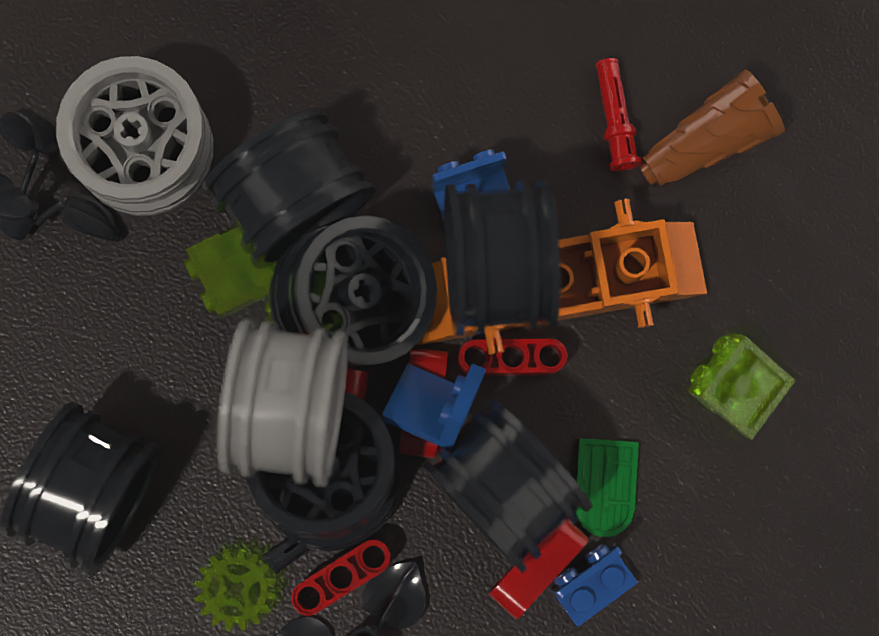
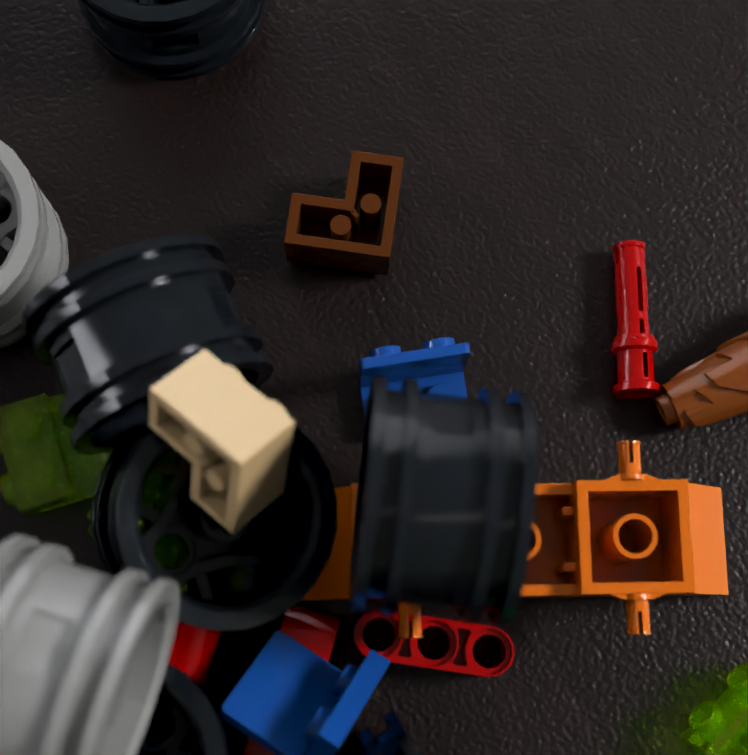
camera: 10 degrees right, 5 degrees down
(361, 237) = (227, 433): none -> tan brick
(410, 85) = (351, 231): none -> reddish brown brick

